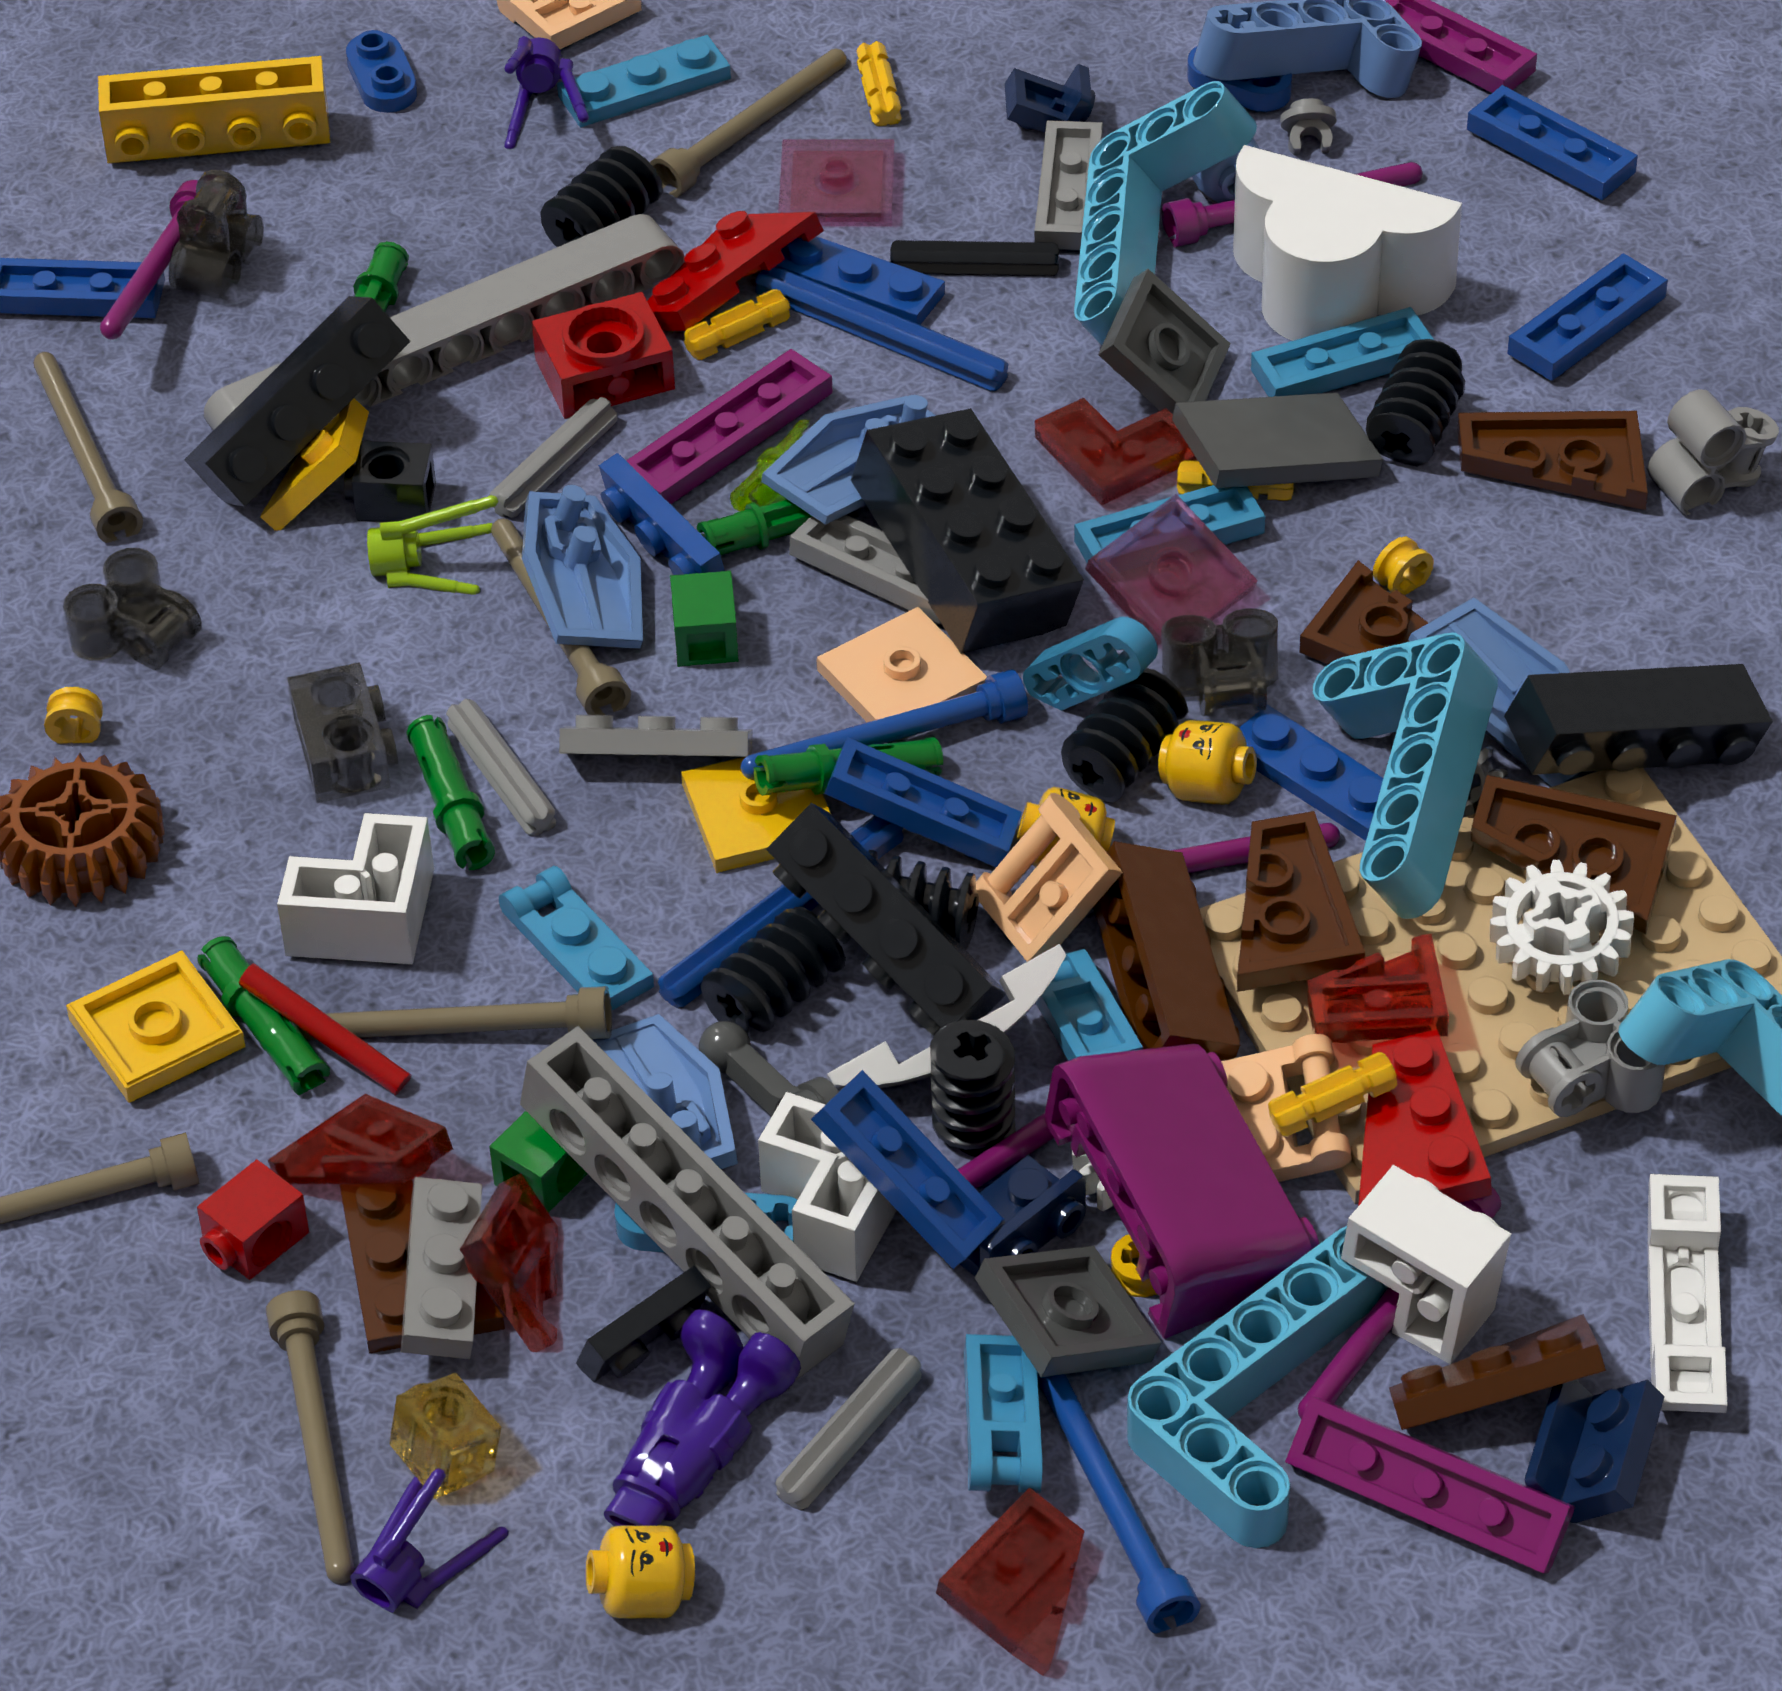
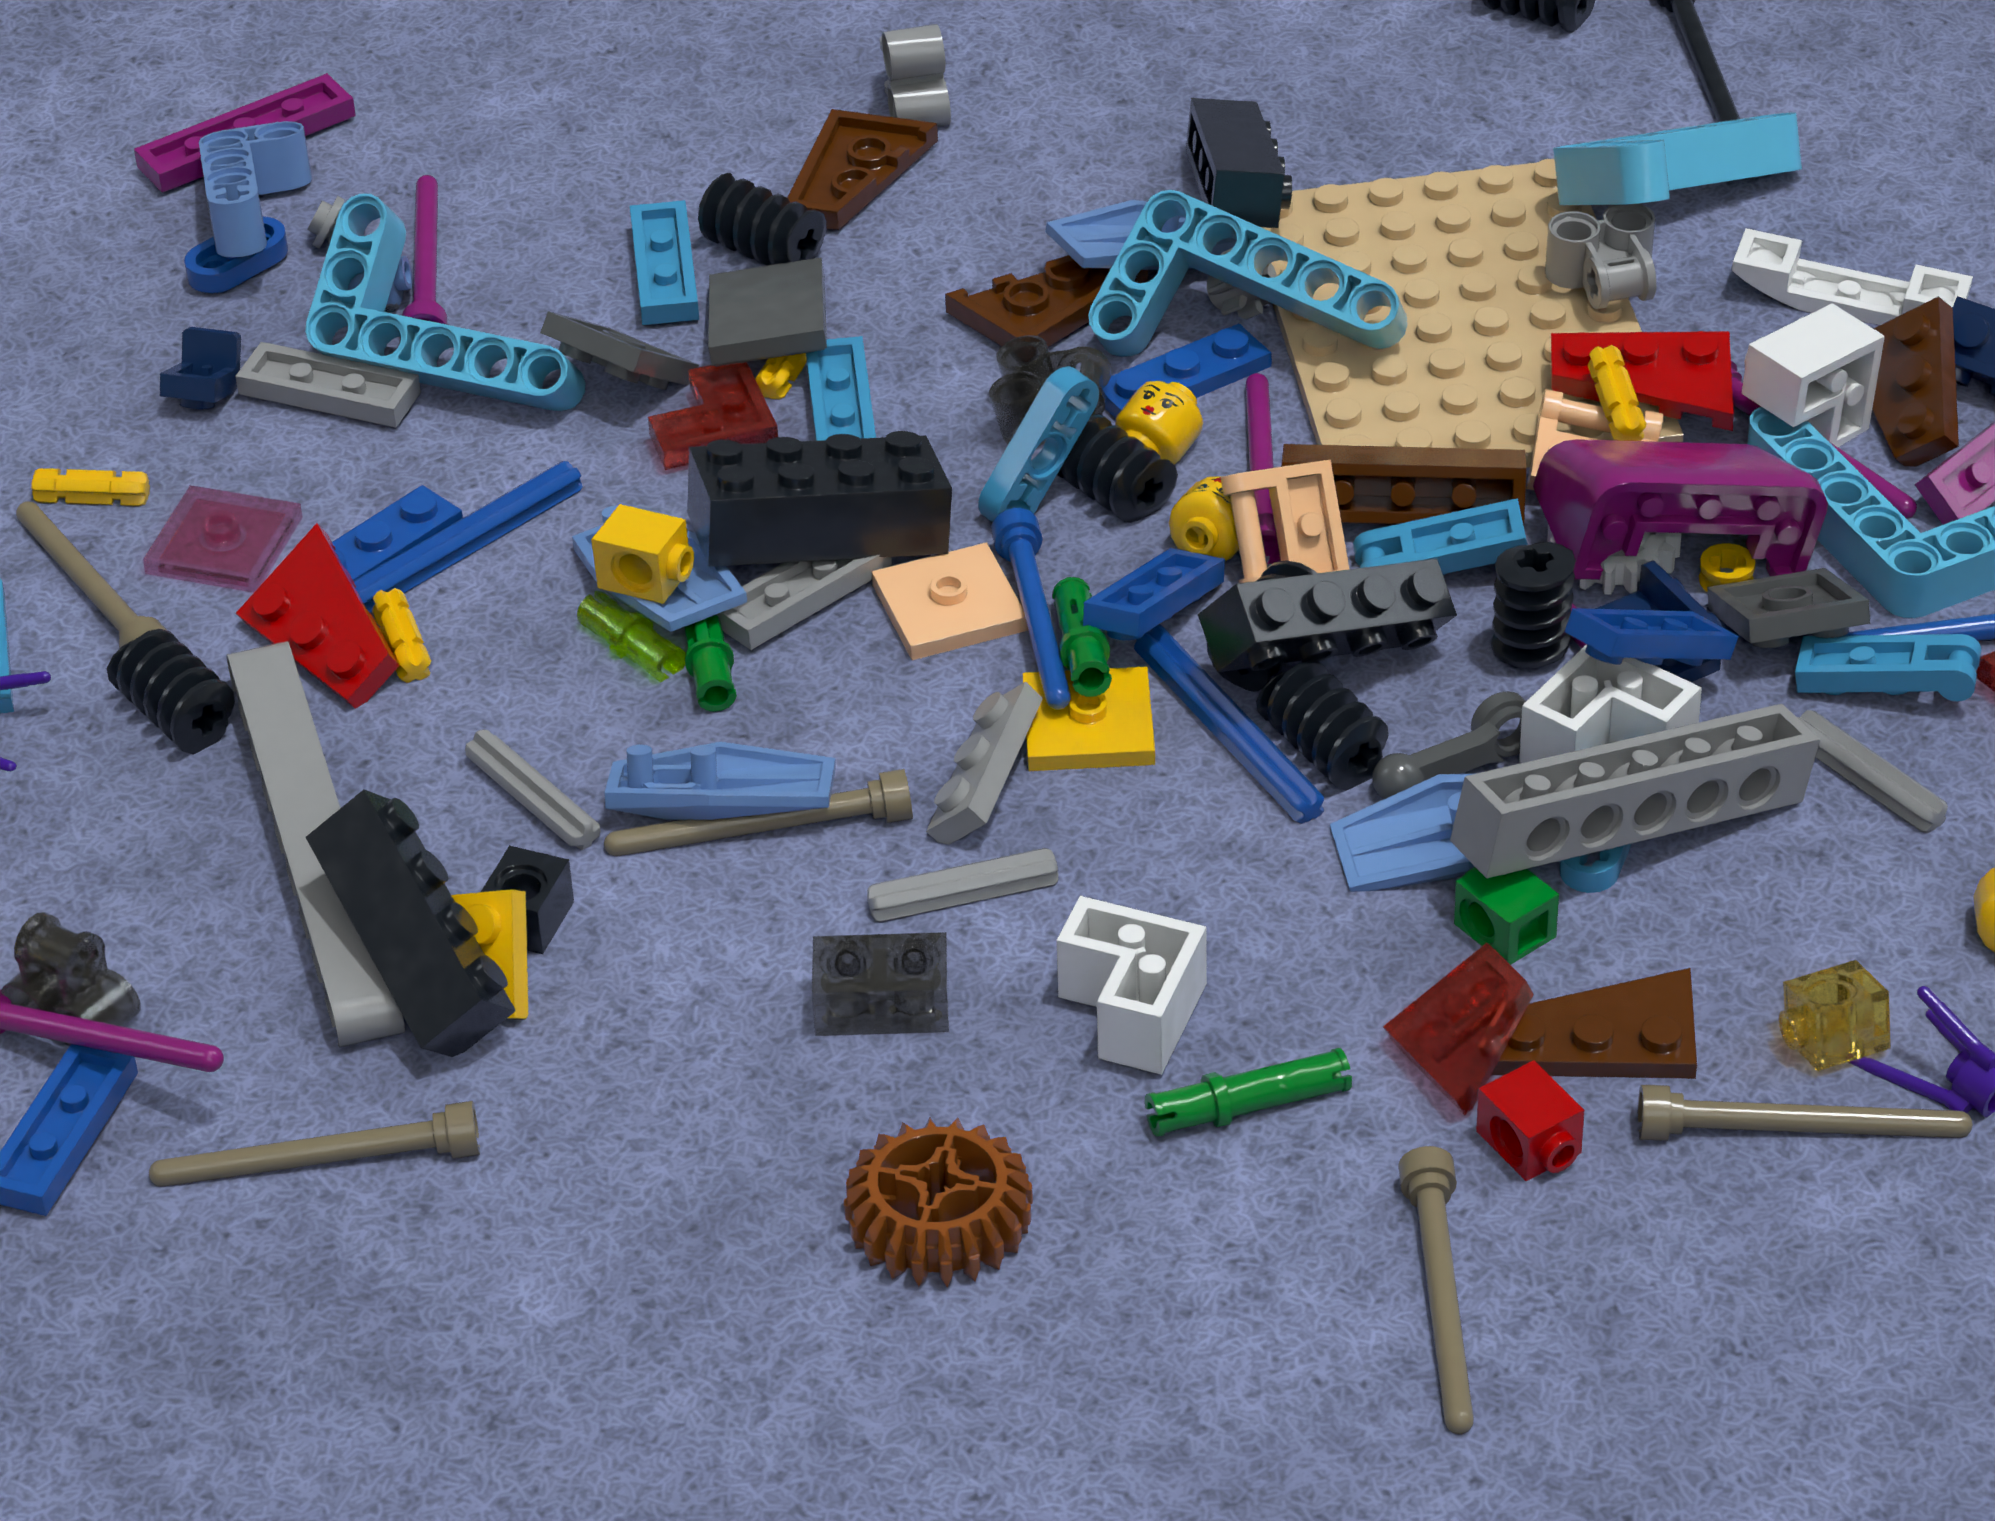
camera: 75 degrees left, 5 degrees down
(74, 702) = (763, 1190): yellow bush -> none
(129, 613) = (628, 1125): clear smoke piece -> none
(155, 1026) = (1236, 1175): yellow plate -> none
(324, 1029) = (1294, 1039): red bar -> none
(383, 274) = (200, 886): green axle -> none
(398, 545) = (623, 915): lime plant -> none
(438, 1283) = (1636, 987): light grey plate -> none
(457, 808) = (989, 919): green pin -> none
(514, 1258) = (1634, 934): clear red wing -> none
(575, 938) = (1219, 863): dark azure plate -> none
(587, 1009) = (1333, 857): dark tan piece -> none
(603, 352) = (407, 724): red brick -> none
(624, 1341) = (1731, 871): black plate -> none
(655, 520) = (691, 714): blue plate -> none
(695, 1427) = (1853, 857): dark purple piece -> none
(704, 618) = (830, 706): green brick -> none
(732, 425) = (559, 660): magenta plate -> none
(826, 422) = (642, 553): none -> yellow brick
(977, 257) = (393, 463): black axle -> none
(1023, 987) = (1471, 638): white slope -> none
(1170, 569) = (913, 398): clear pink plate -> none
(1293, 907) = (1374, 388): reddish brown wing -> none
(1339, 243) = (536, 225): white brick -> none
(1381, 997) = (1498, 358): clear red wing -> none
(1403, 566) = (958, 272): yellow bush -> none
(1547, 824) = (1372, 217): reddish brown wing -> none
(1552, 142) = (443, 94): blue plate -> none
(1561, 926) = (1460, 245): white gear -> none
(1587, 316) = (687, 118): blue plate -> none

